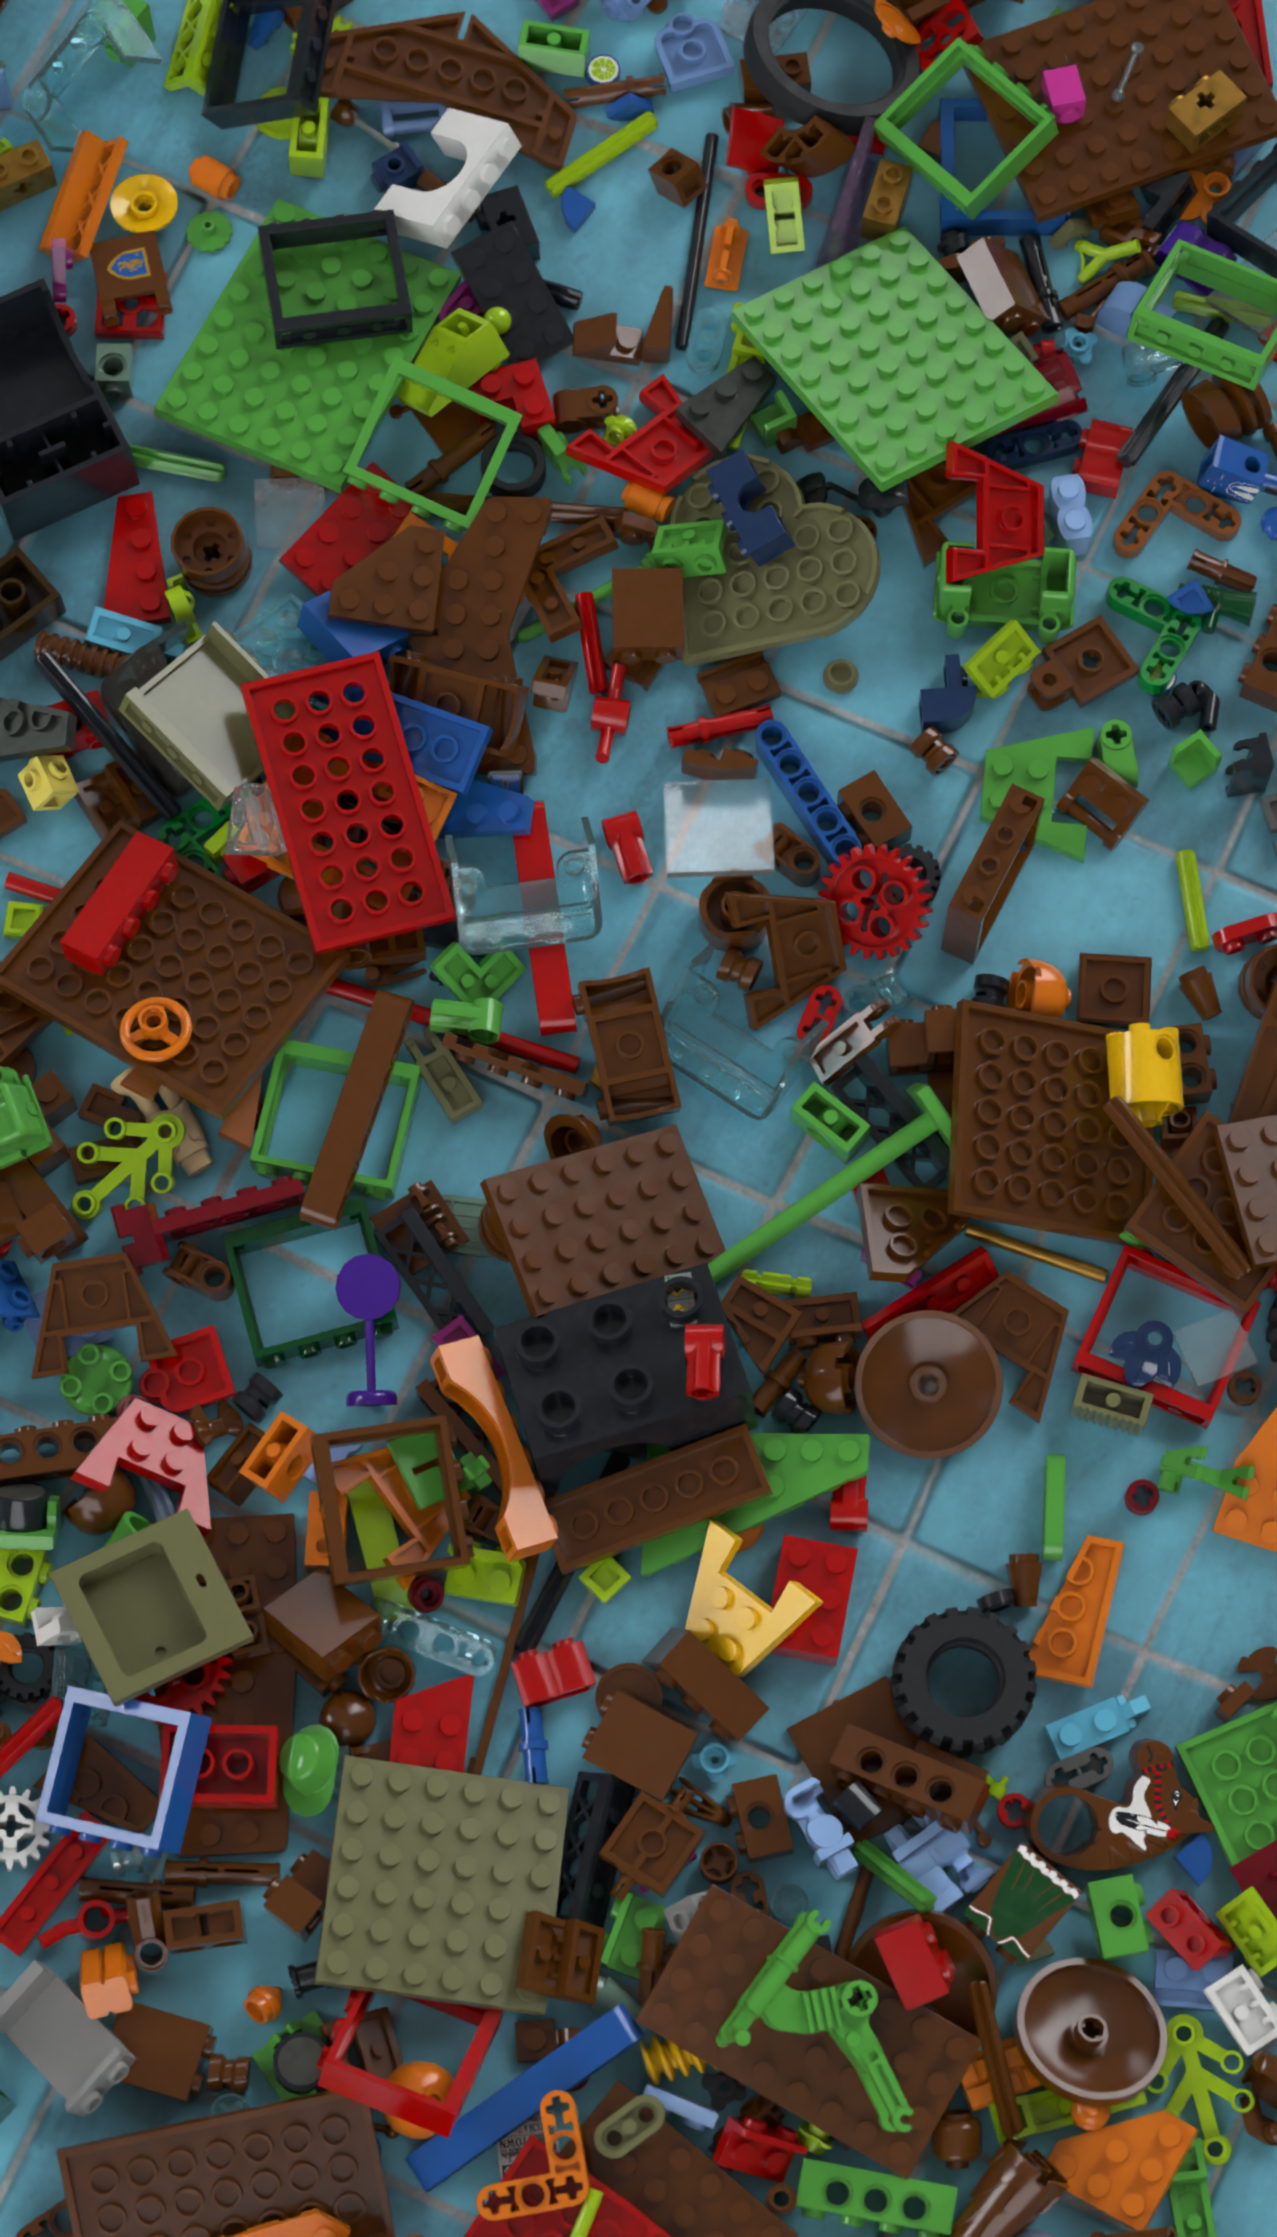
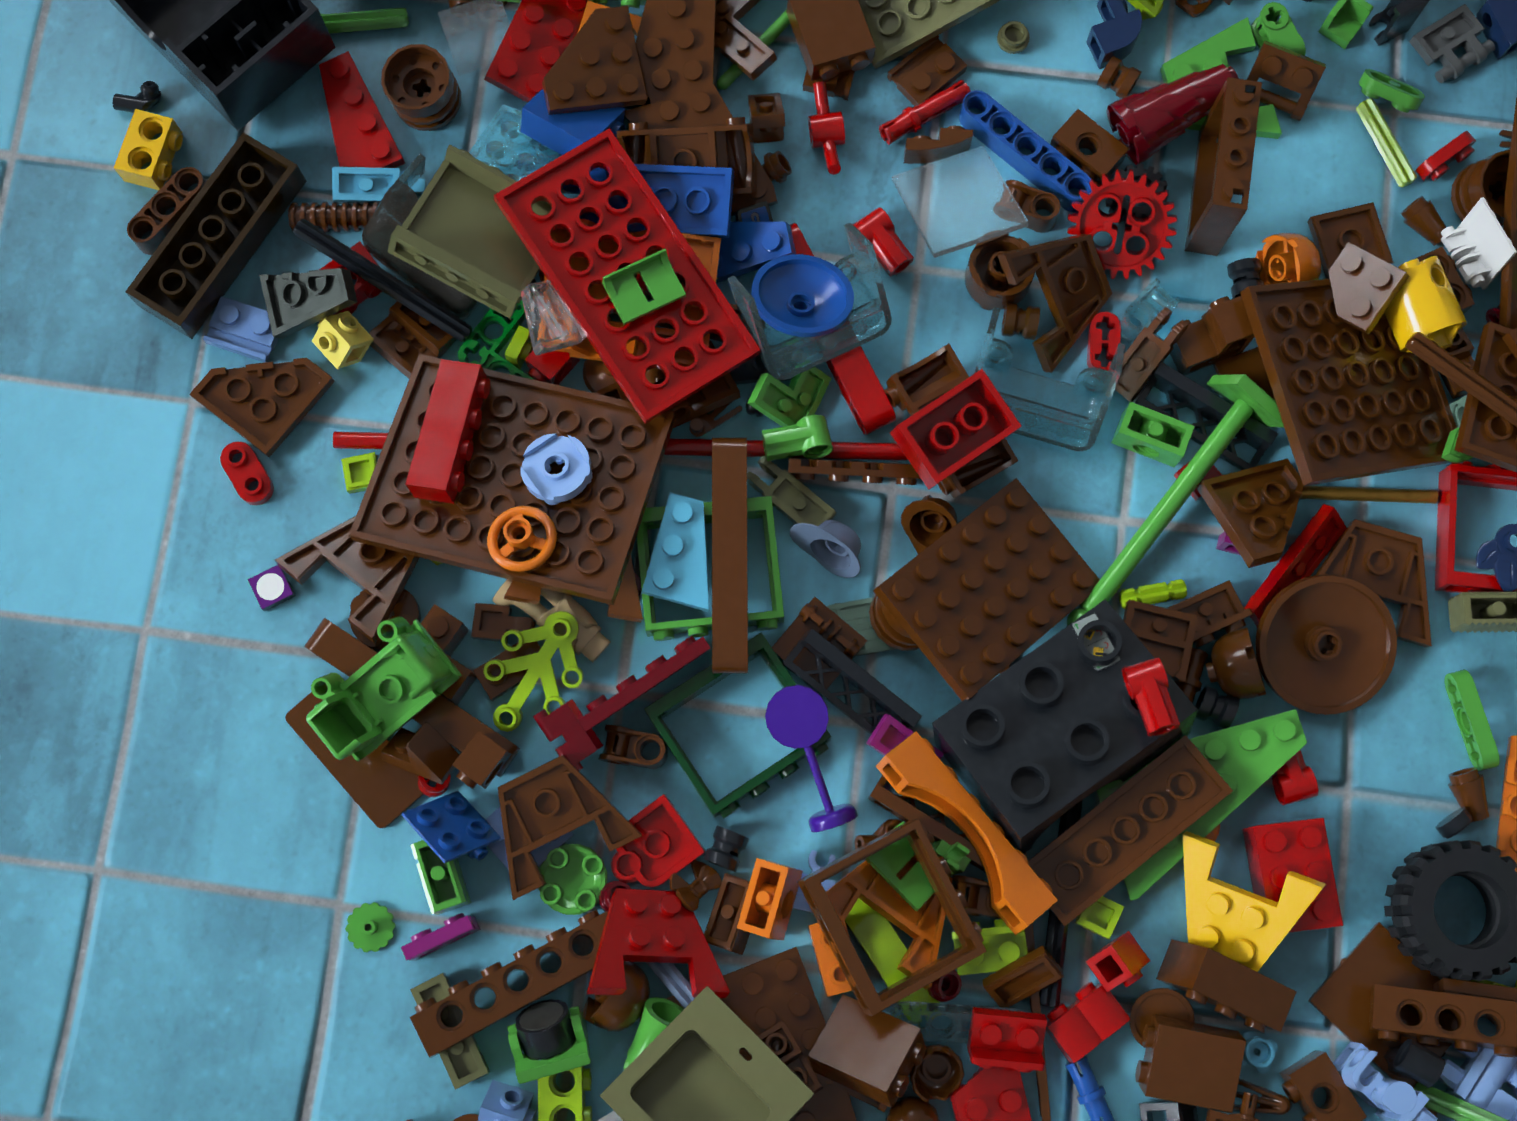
camera: 20 degrees left, 5 degrees up
(180, 606) = (411, 143): lime piece -> none
(218, 989) = (556, 487): none -> light blue plate
(307, 1096) = (679, 555): none -> medium azure wing
(375, 817) = (658, 279): none -> bright green piece
(465, 1133) = (831, 545): none -> sand blue piece
(466, 1661) = (1007, 1039): none -> red bracket
(504, 1611) = (1023, 977): none -> reddish brown tile
(520, 863) = (802, 295): none -> blue dish
(546, 738) = (776, 166): none -> reddish brown plate
(591, 643) = (787, 72): red axle -> none
(604, 1625) = (1118, 962): none -> red brick
(620, 1052) = (955, 429): none -> red brick
(962, 798) = (1165, 111): none -> dark red cone
(1086, 1036) = (1363, 286): none -> plate
(1217, 847) = (1402, 95): none -> bright green plate
(1232, 1034) = (1479, 246): none -> white hinge

